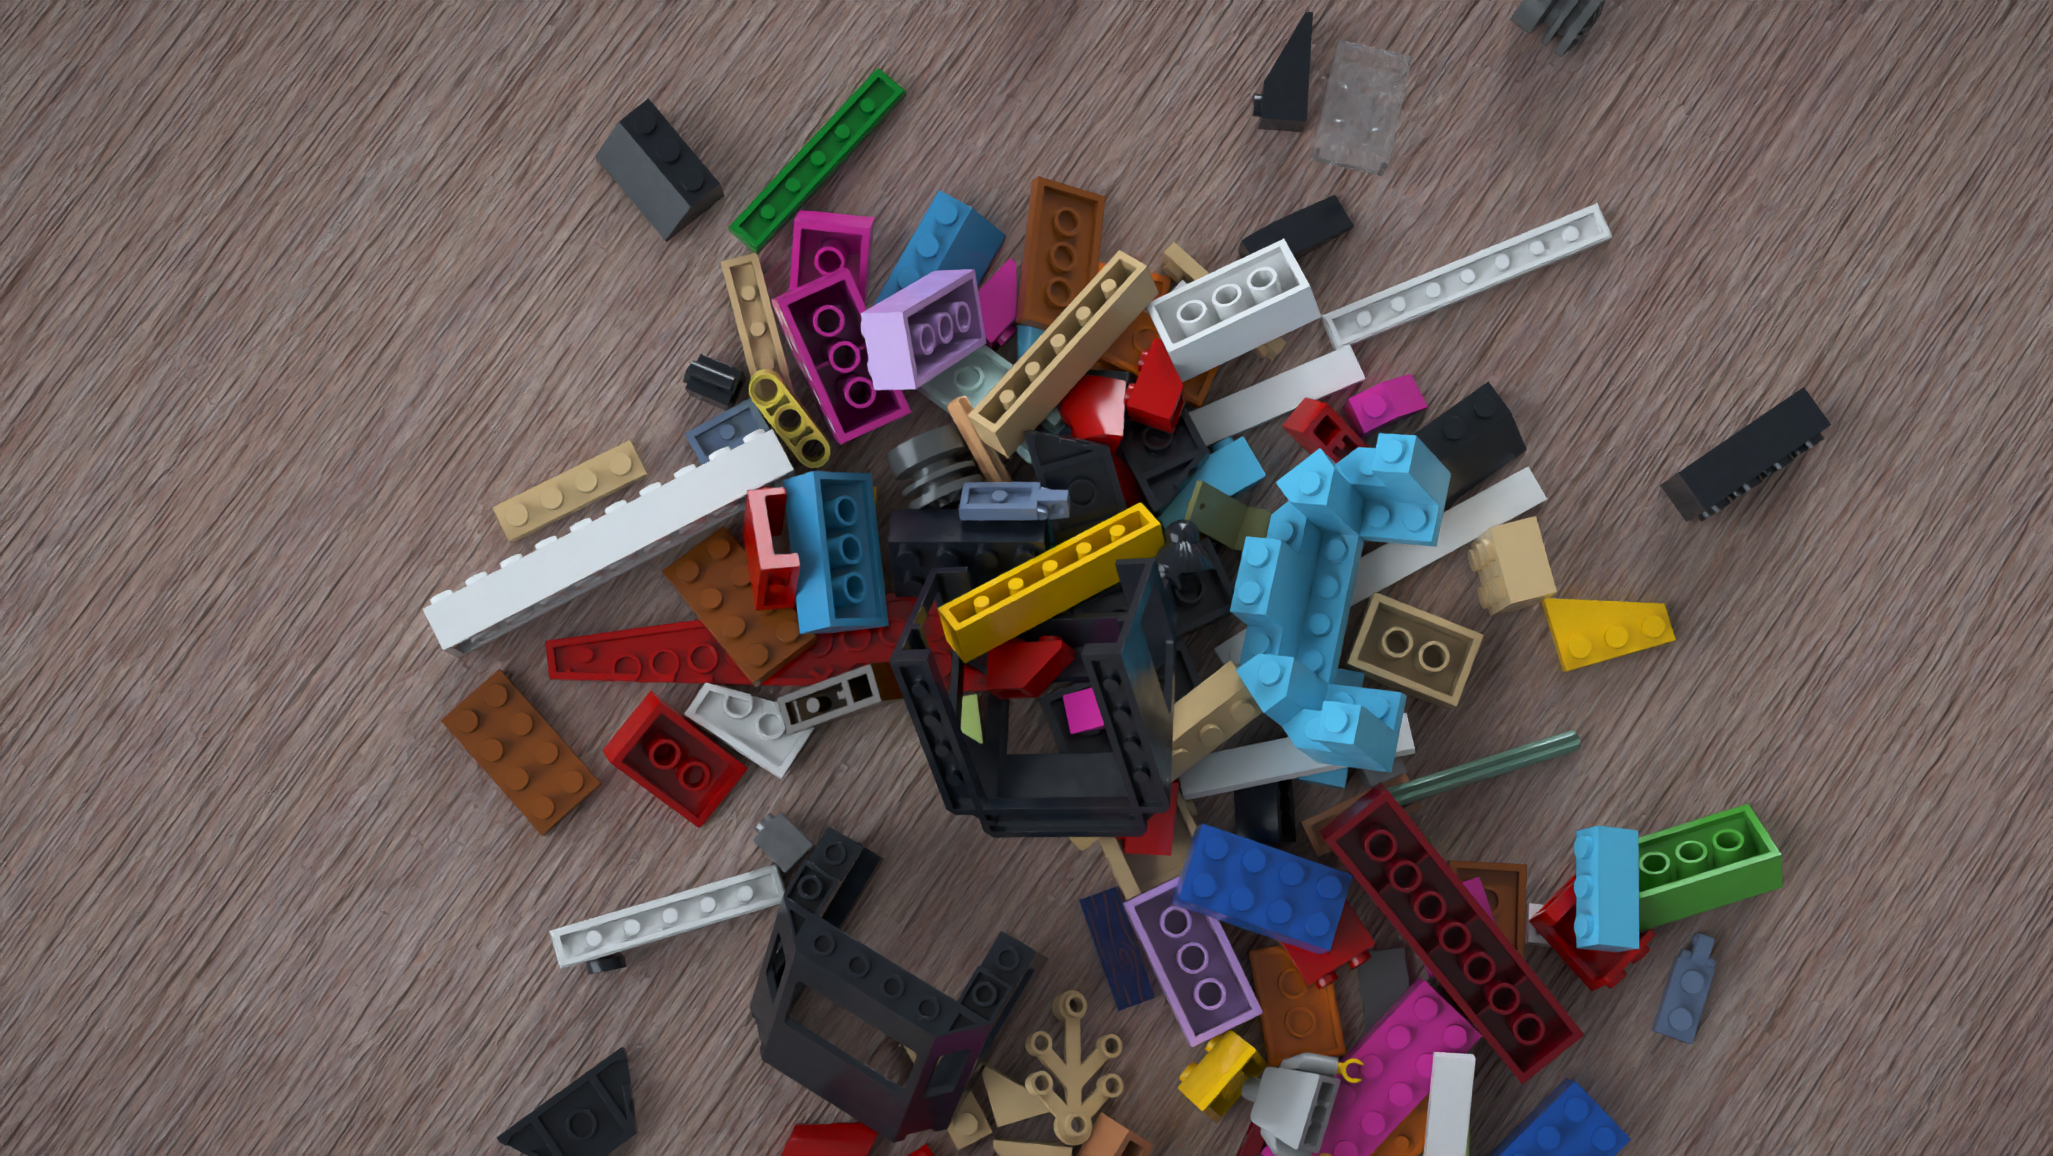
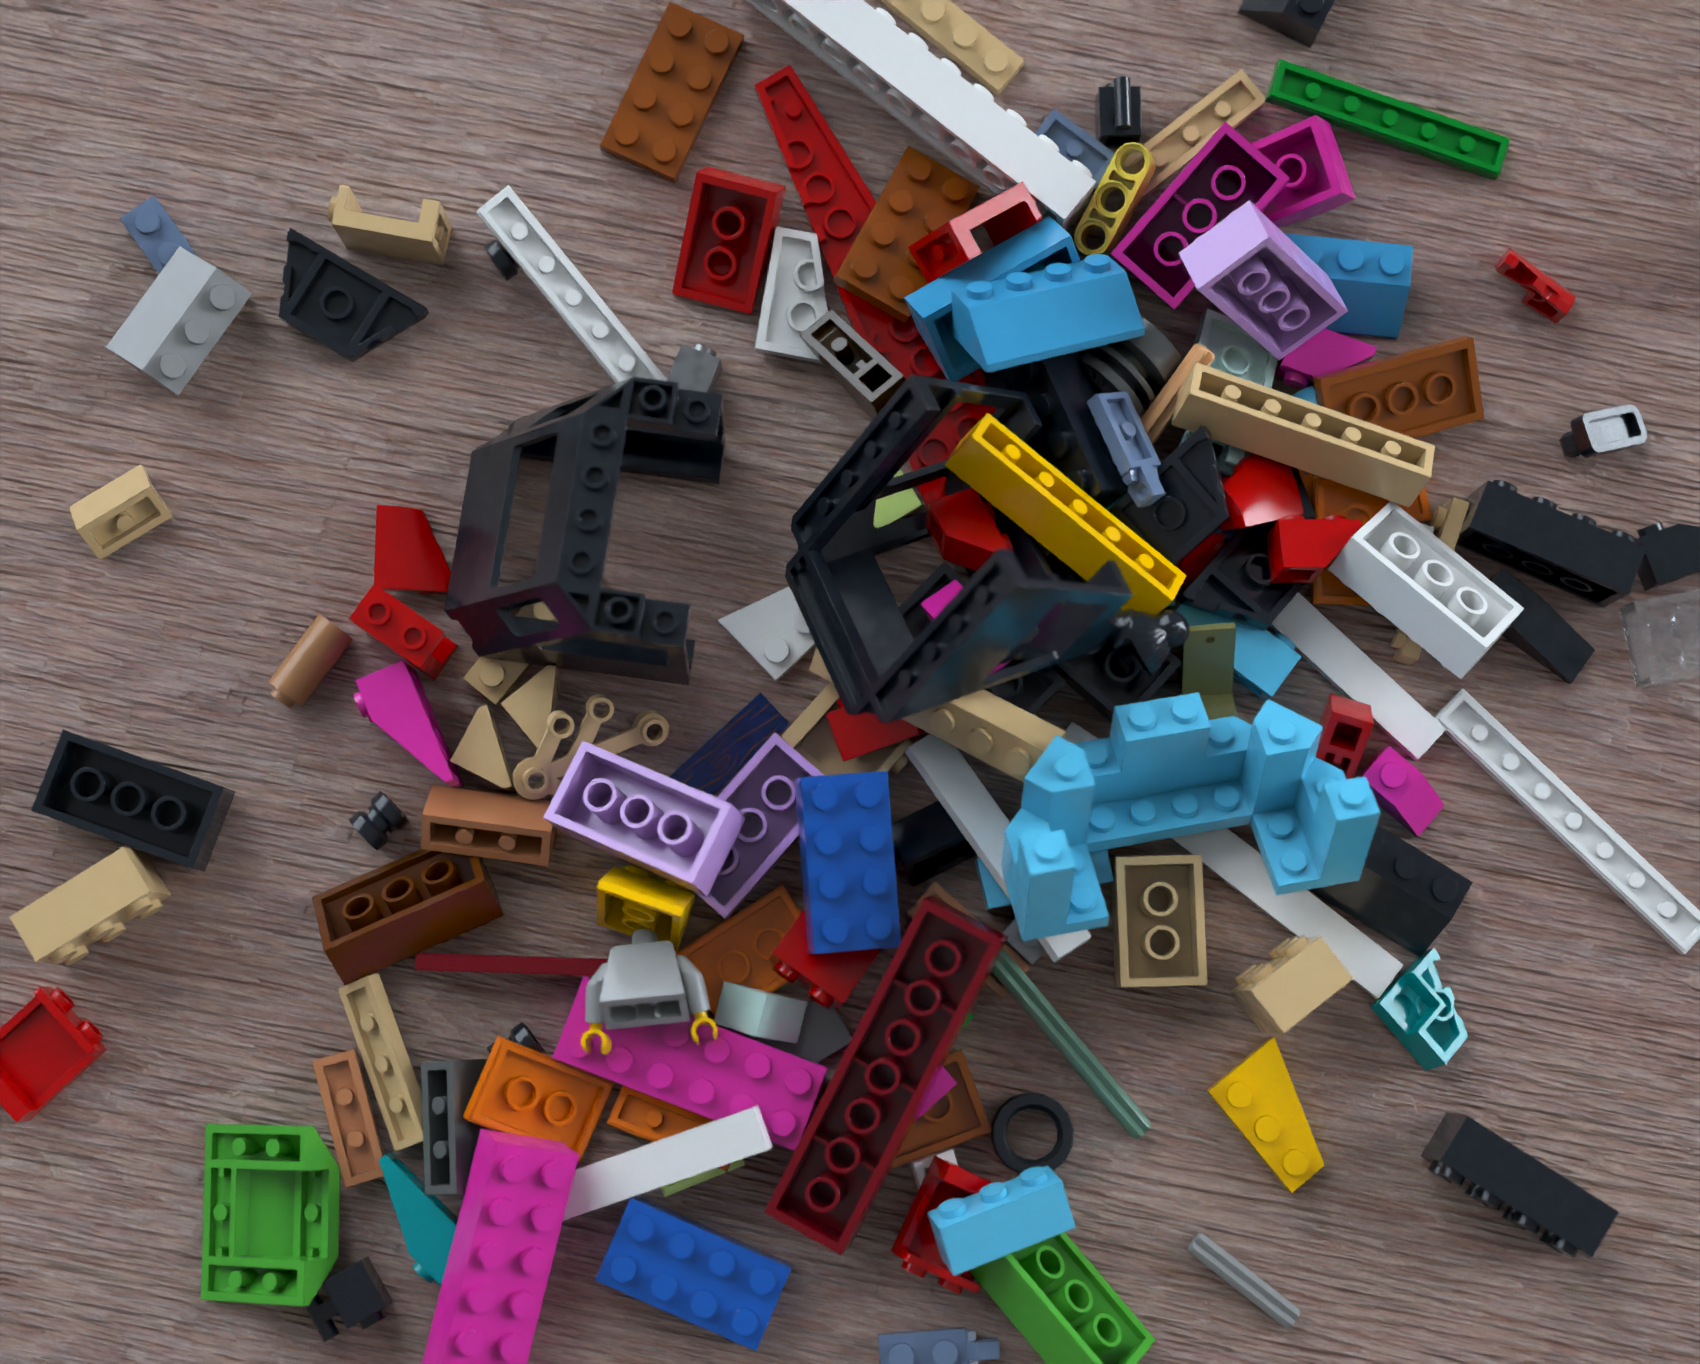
camera: 65 degrees right, 0 degrees up
(564, 1023) = (388, 236): none -> tan panel
(871, 521) = (1045, 313): none -> dark azure slope
(1018, 101) = (1543, 292): none -> red slope
(1030, 868) = (771, 632): none -> white wing
(1153, 1045) = (645, 818): none -> lavender brick
(1160, 104) = (1604, 432): none -> piece
(1236, 192) = (1550, 543): none -> black brick
(1350, 1016) = (760, 1012): none -> light aqua slope
(1512, 828) = (1038, 1101): none -> black tyre
(1573, 468) = (1422, 1013): none -> teal slope
(1729, 710) = (1243, 1280): none -> light grey axle

